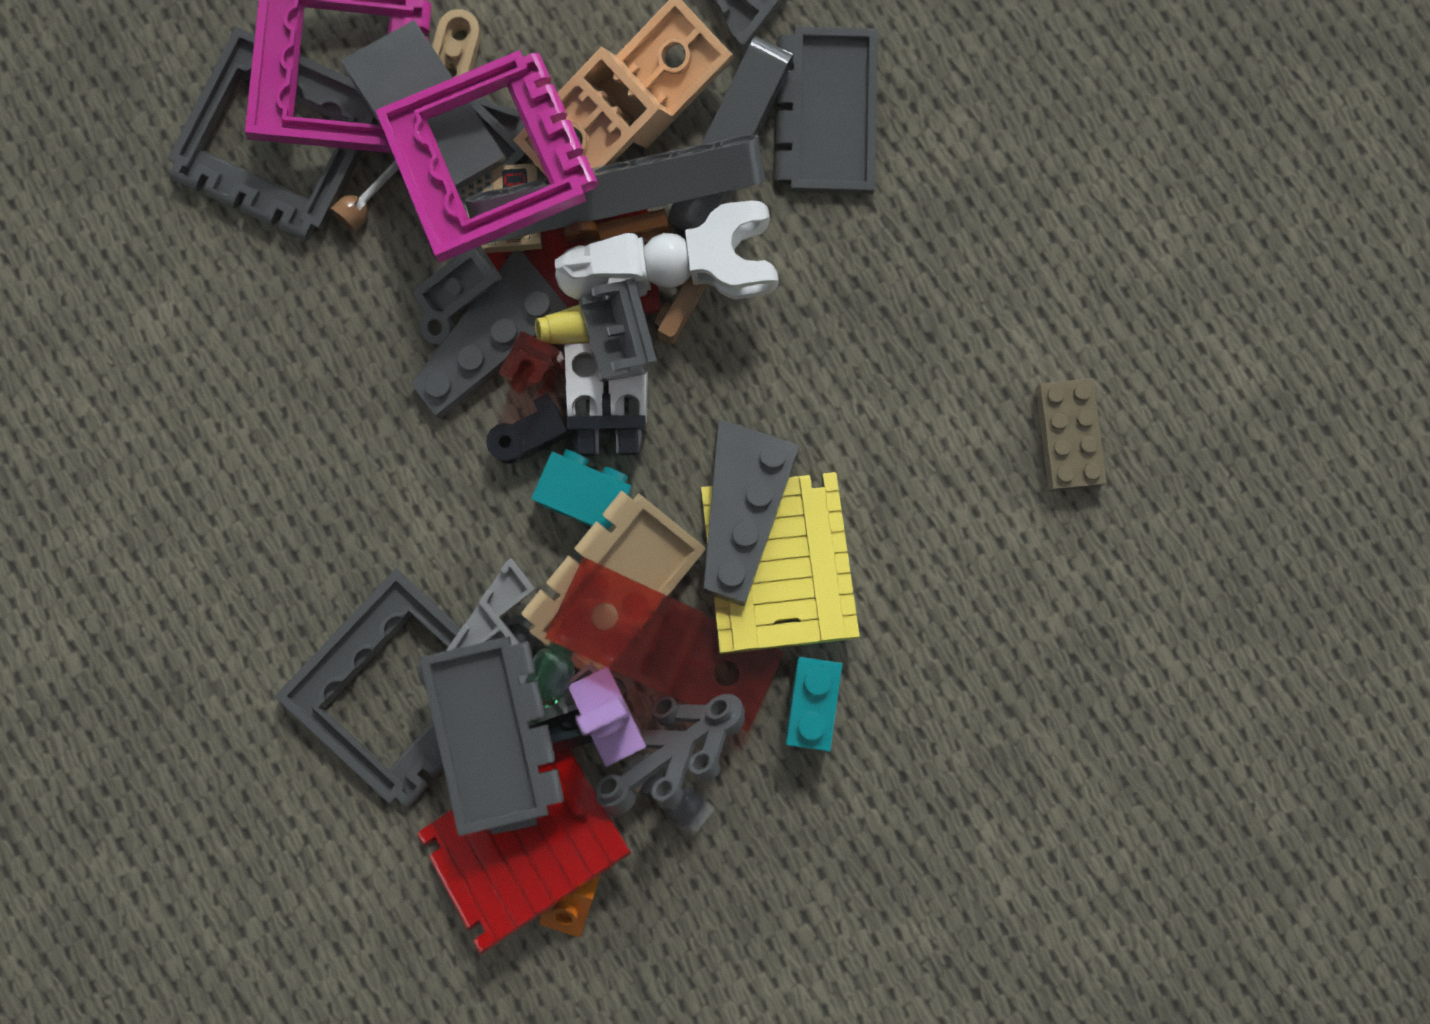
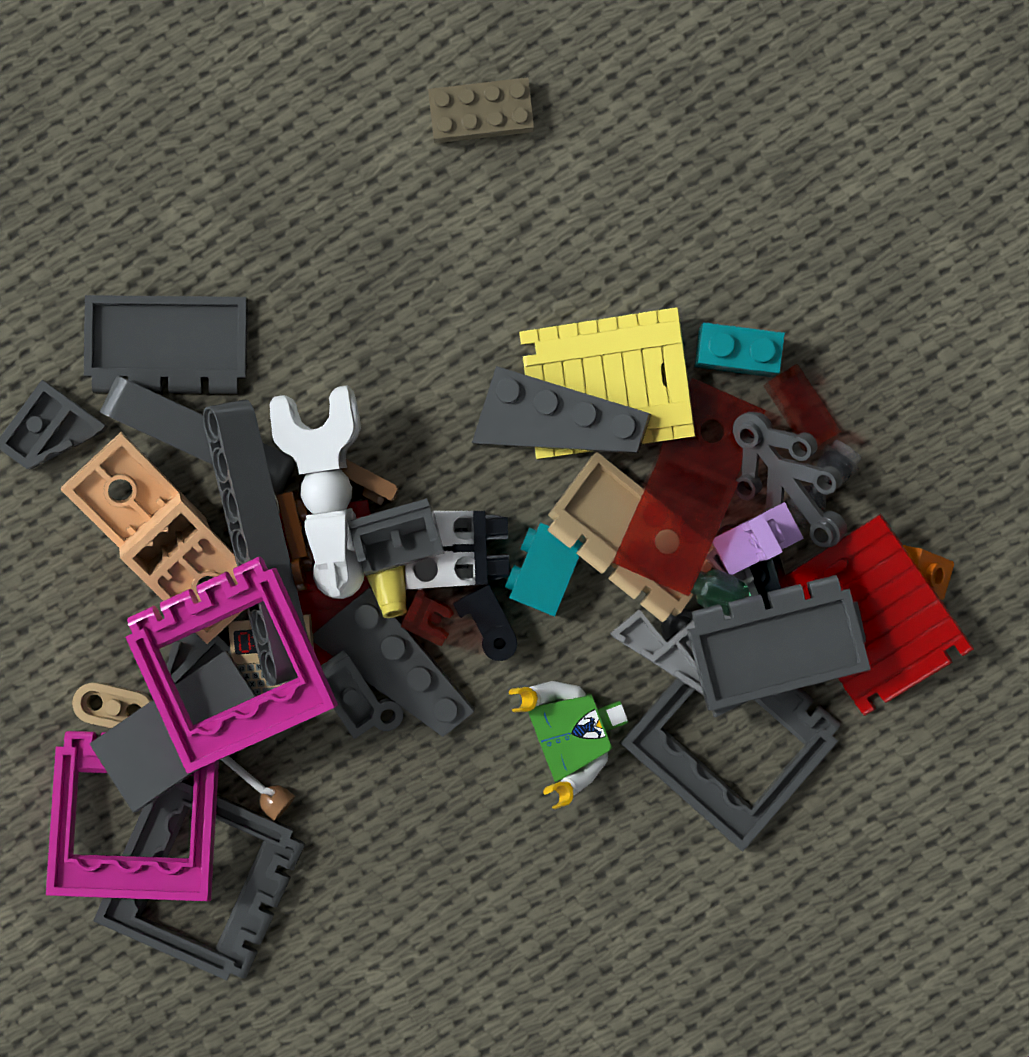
camera: 90 degrees left, 5 degrees up
(407, 514) = (570, 733): none -> torso
(751, 772) = (801, 405): none -> clear red hinge

